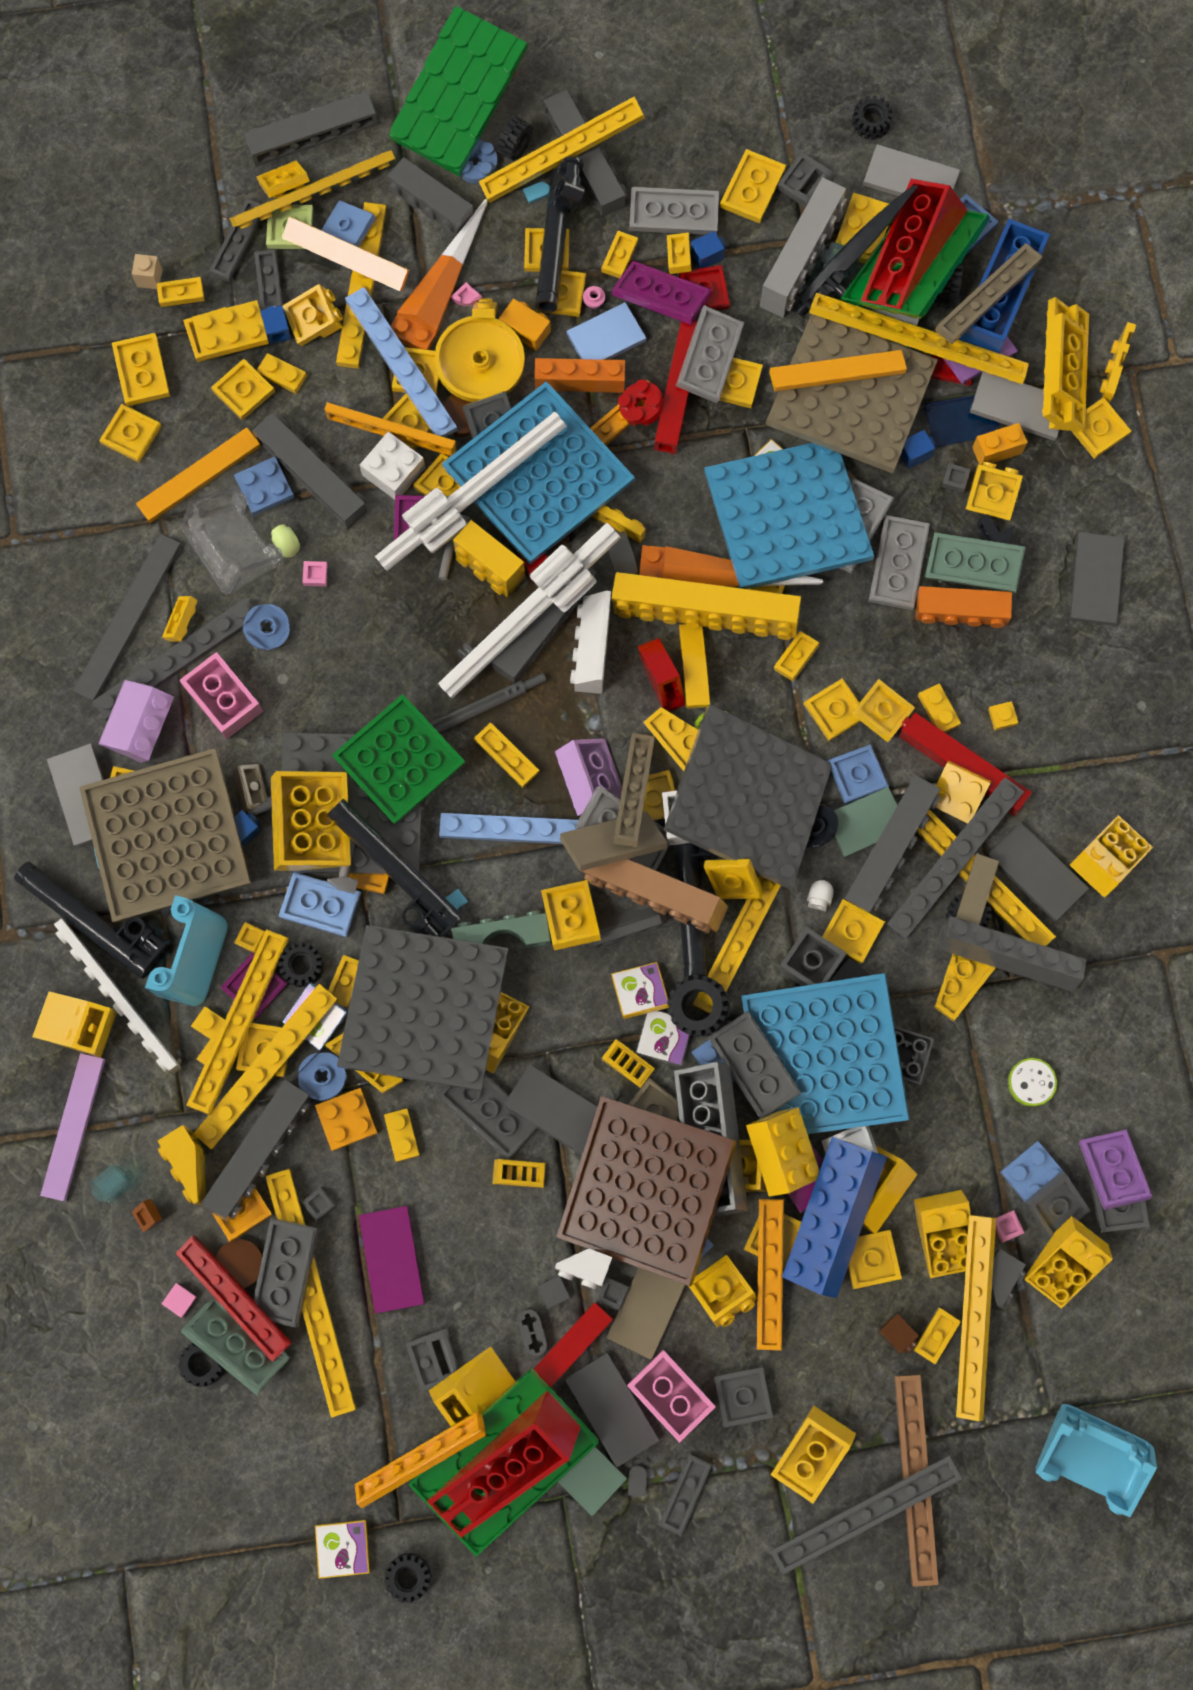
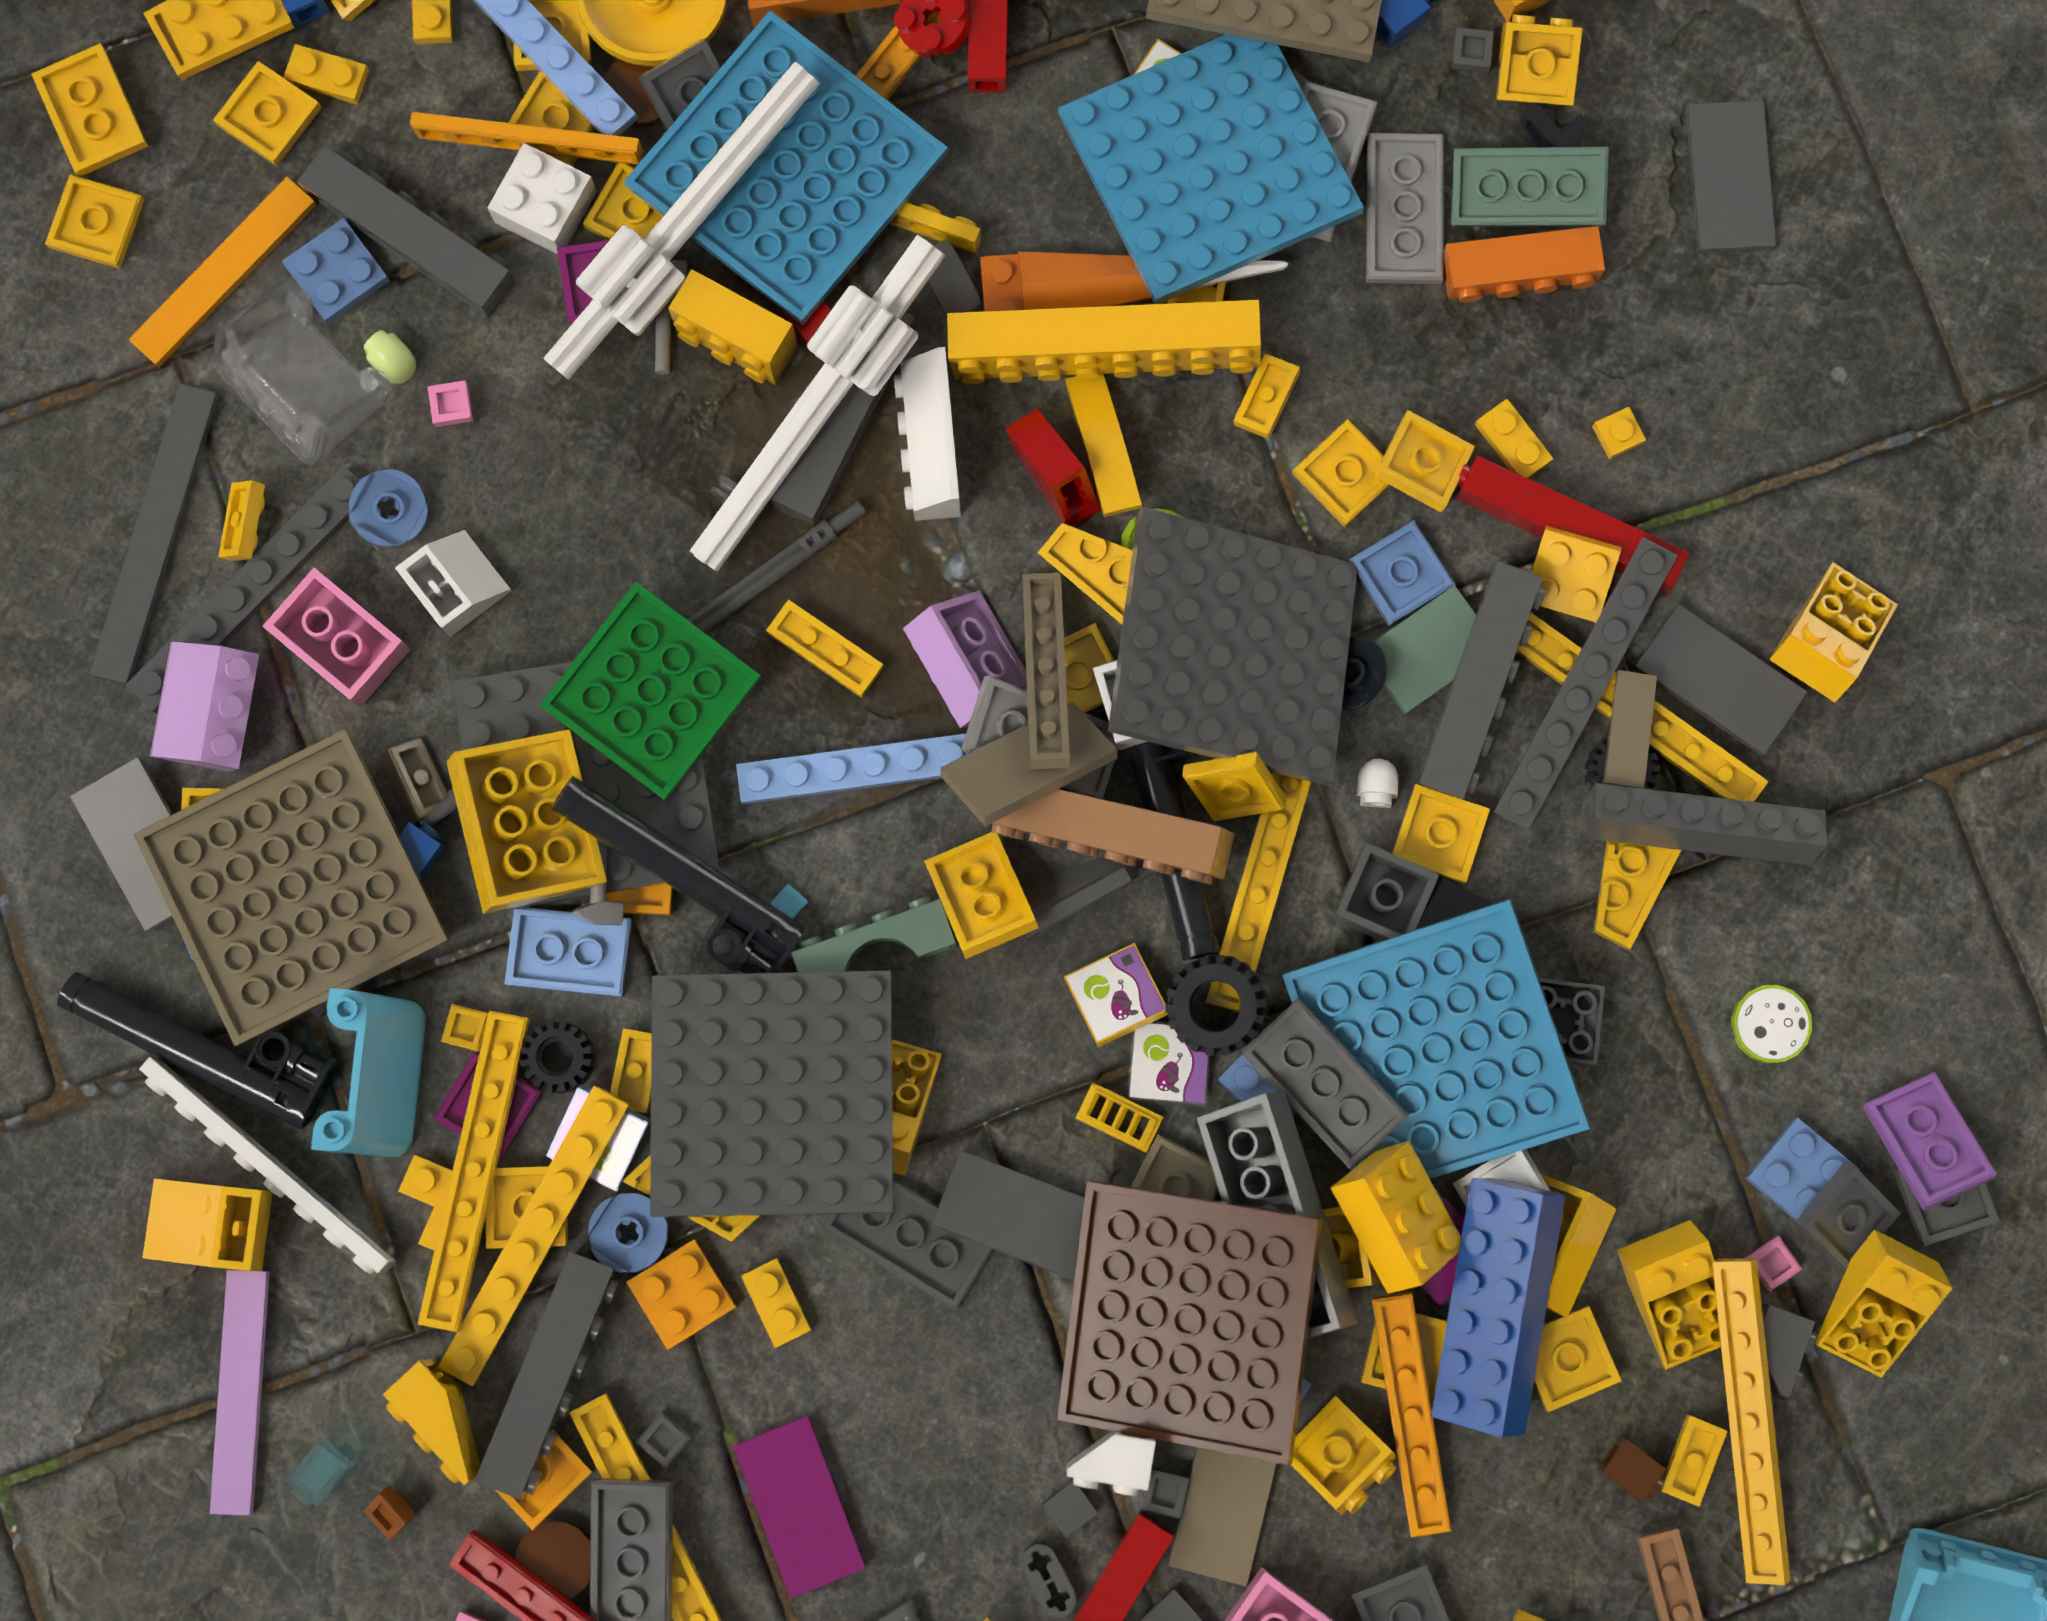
camera: 10 degrees left, 5 degrees up
(296, 675) = (453, 581): none -> white slope
(498, 1168) = (943, 1330): yellow slope -> none

